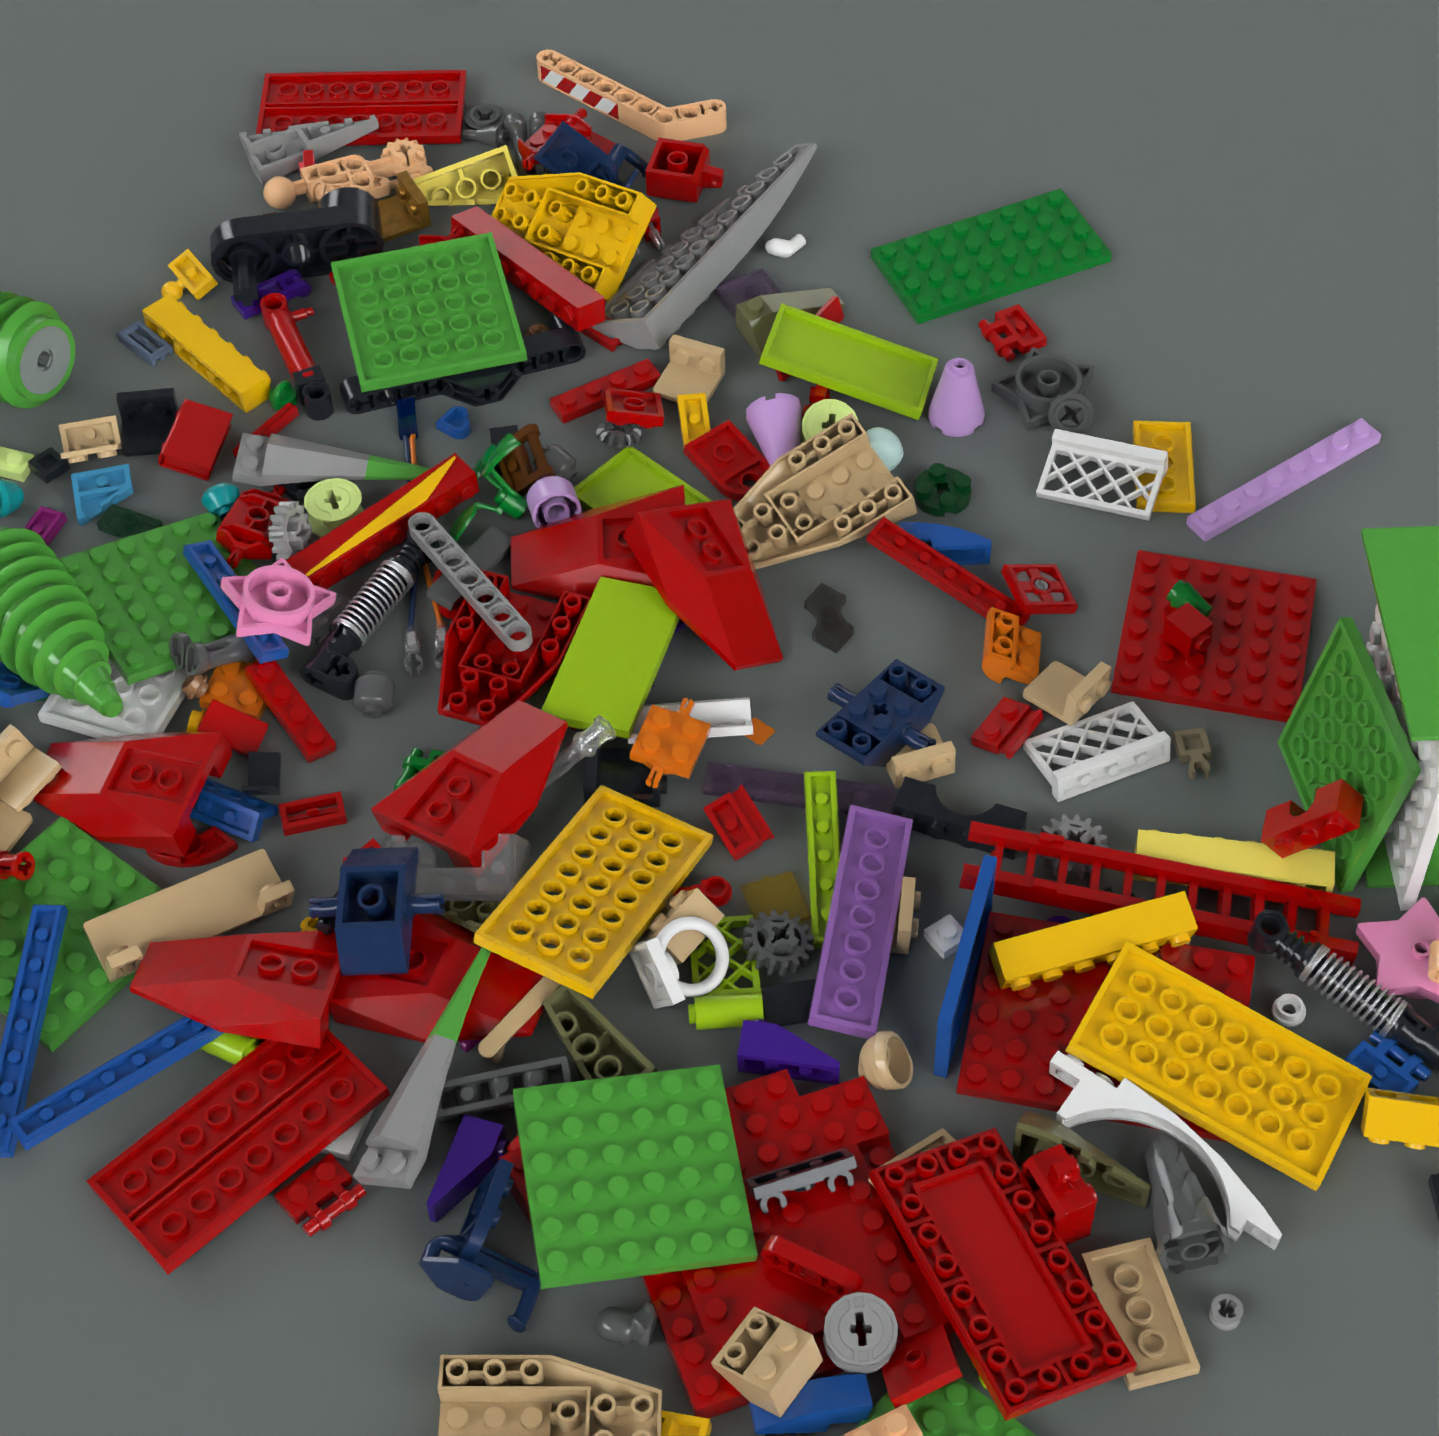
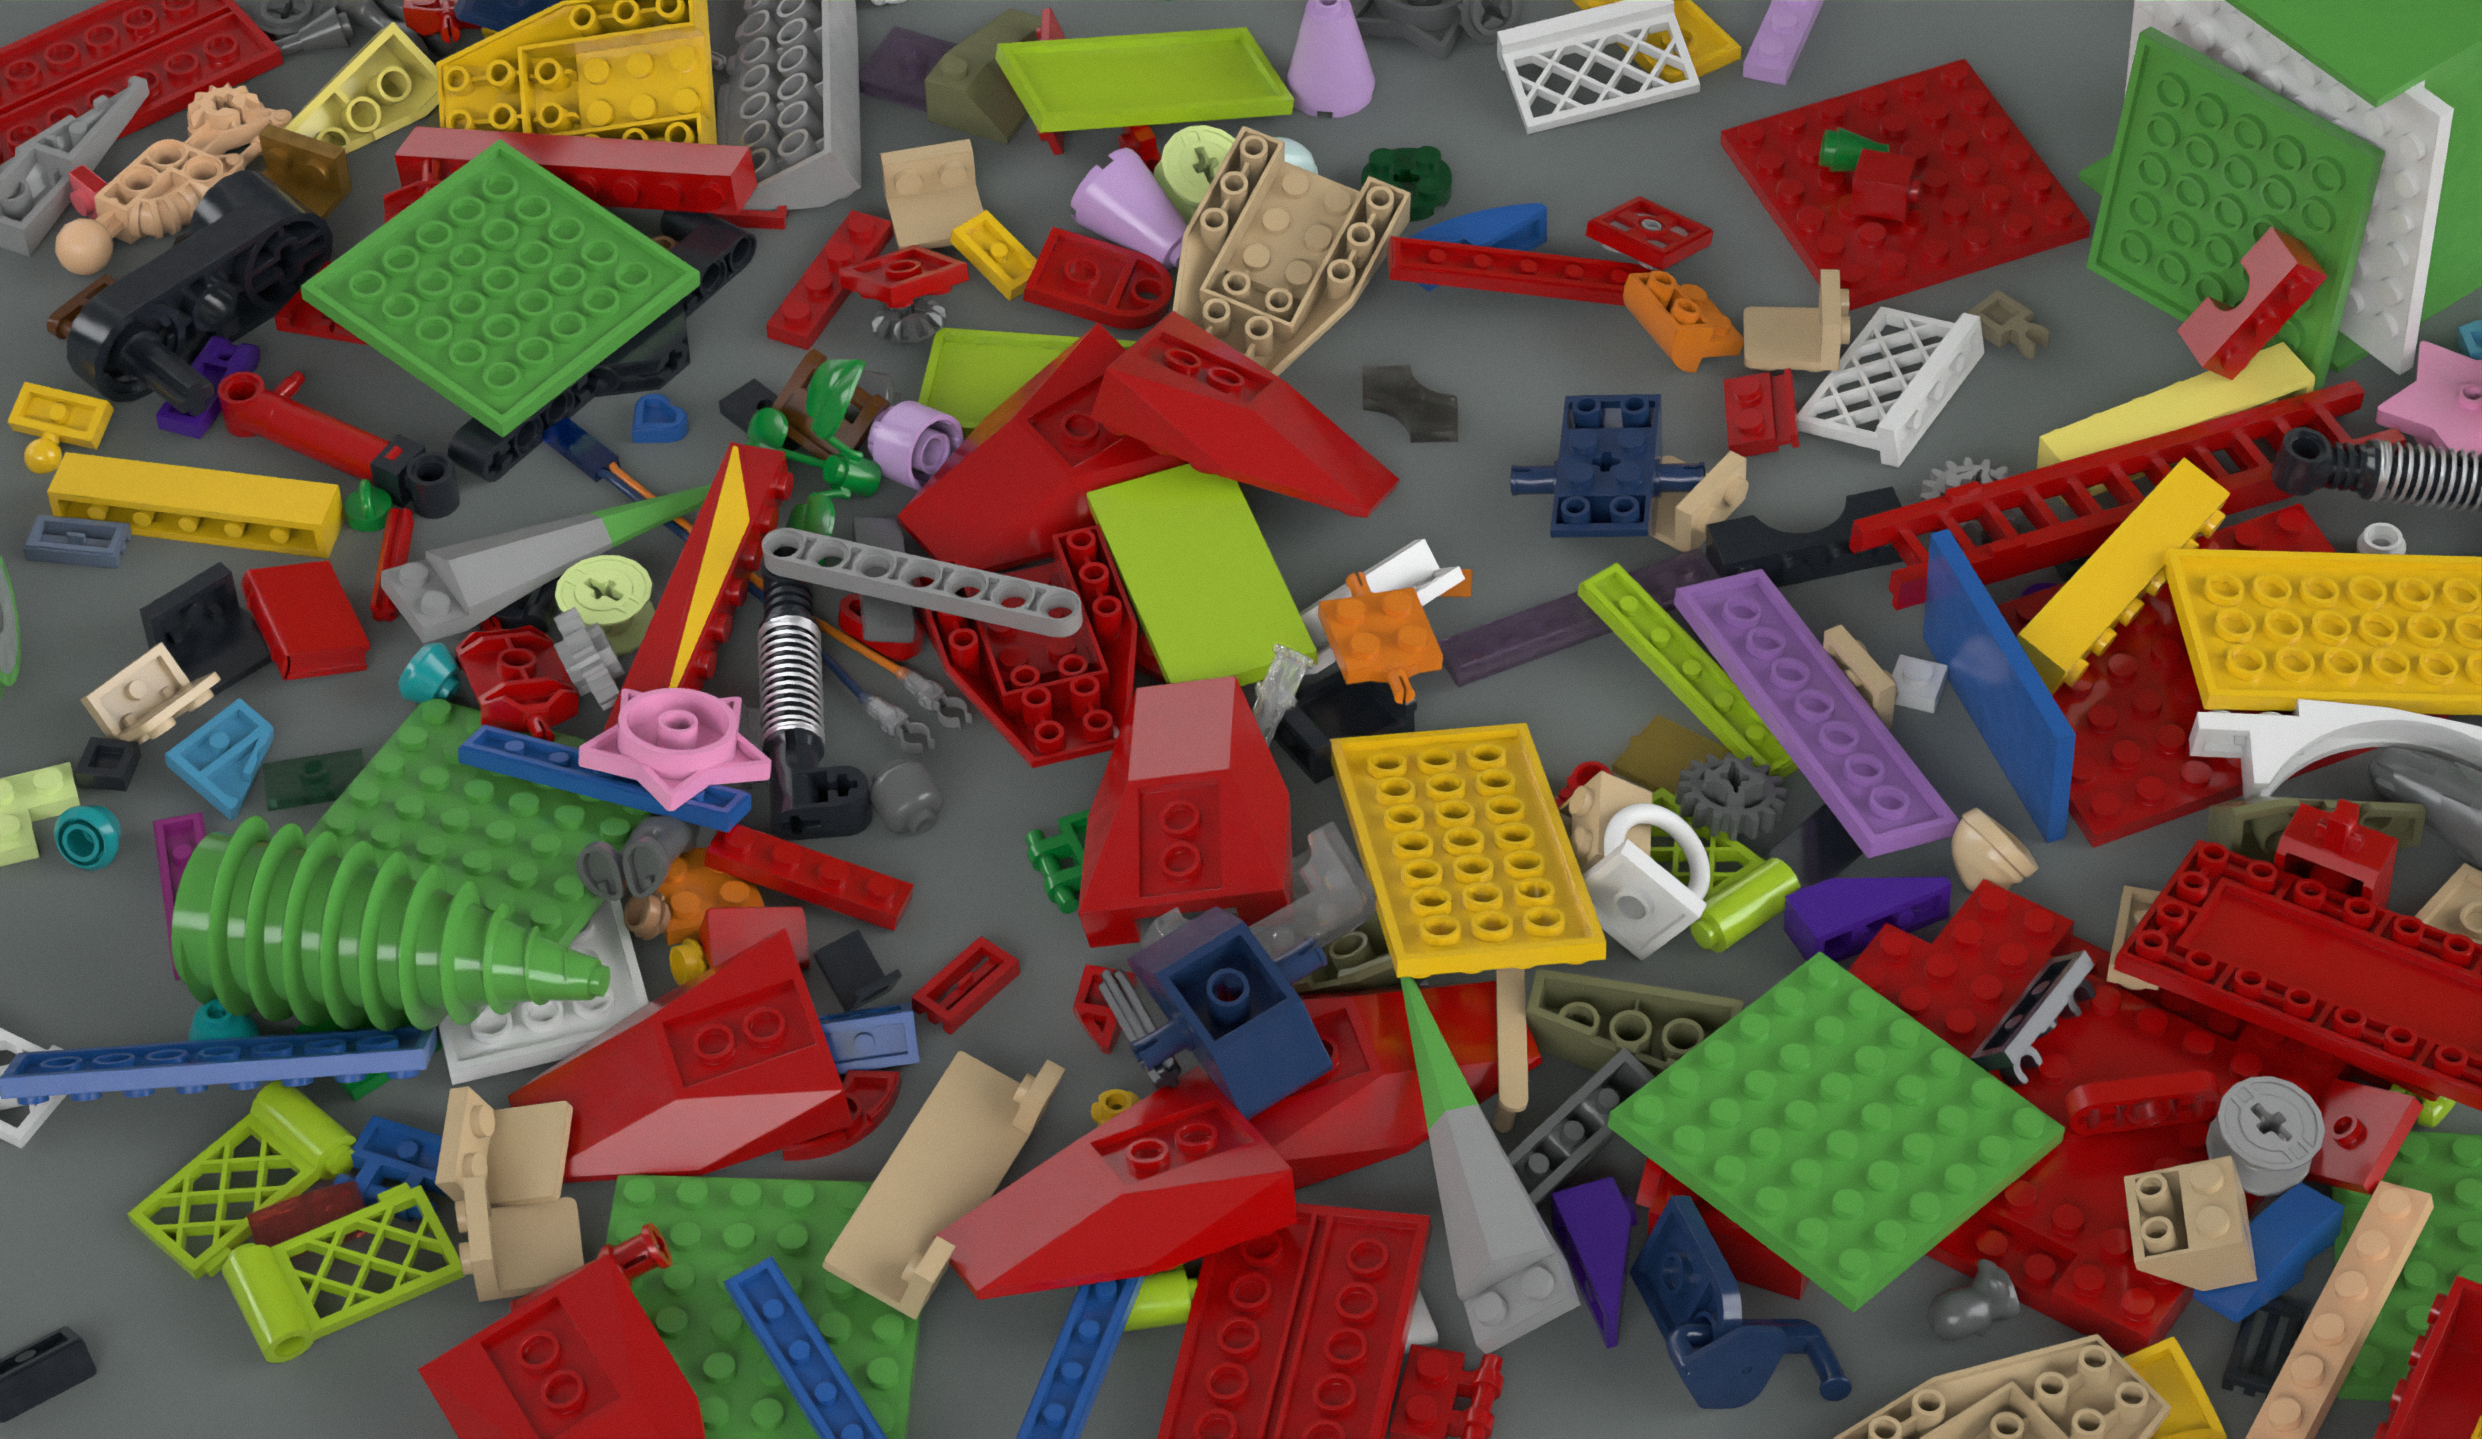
camera: 35 degrees left, 5 degrees down
(738, 823) = (1545, 691): red plate -> none

